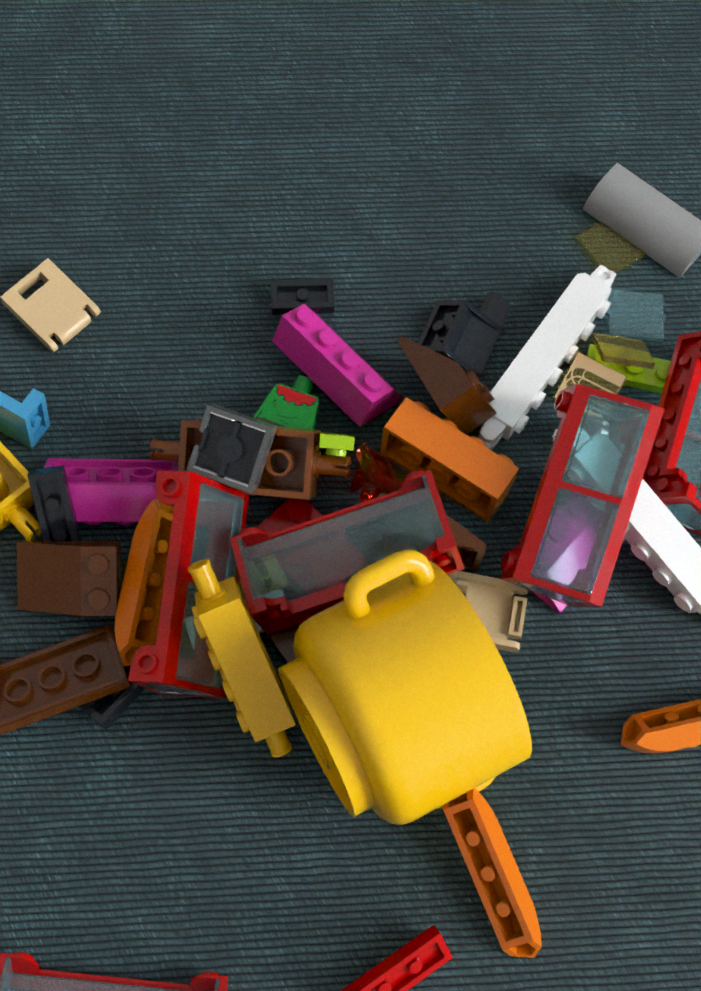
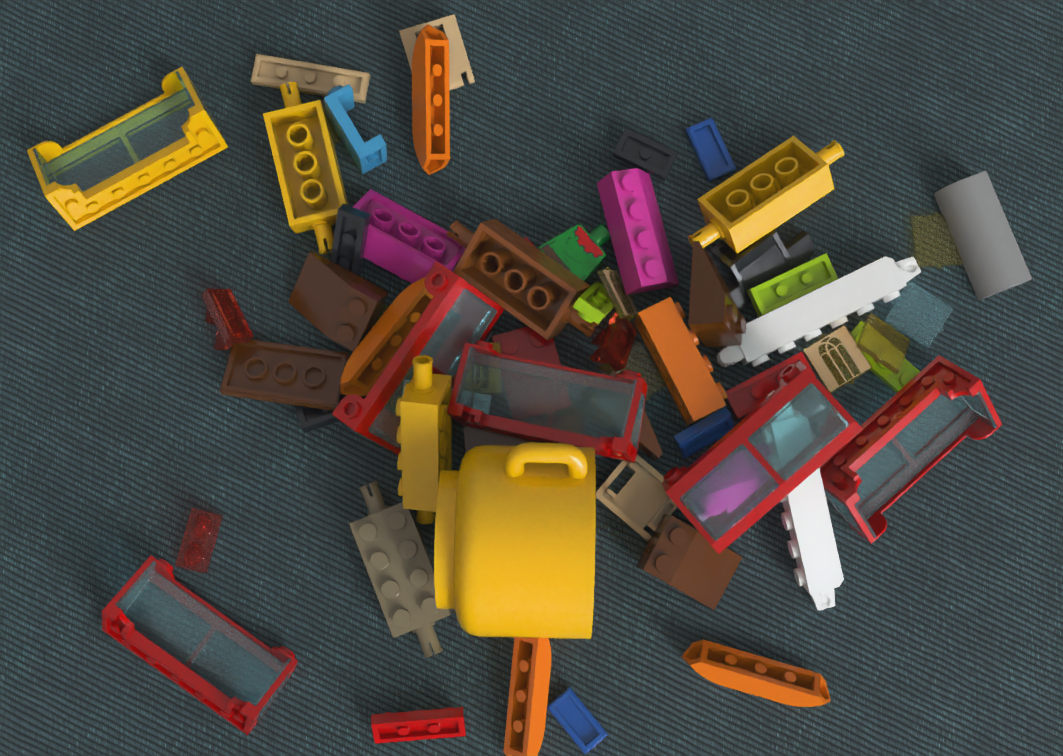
camera: 35 degrees right, 15 degrees up
(46, 910) = (199, 540): none -> clear red tile
(67, 342) = (431, 99): none -> orange brick
(232, 448) = (505, 270): piece -> none
(286, 815) = (399, 568): none -> dark tan brick
(351, 428) = (614, 286): none -> clear yellow piece
(360, 266) = (710, 149): none -> blue tile
(436, 273) = (766, 194): none -> yellow brick
(507, 342) = (792, 285): none -> lime plate
(510, 516) = (704, 432): none -> blue tile
(535, 450) = (752, 392): none -> red plate
(557, 872) = (577, 720): none -> blue tile
(569, 645) = (688, 562): none -> reddish brown slope

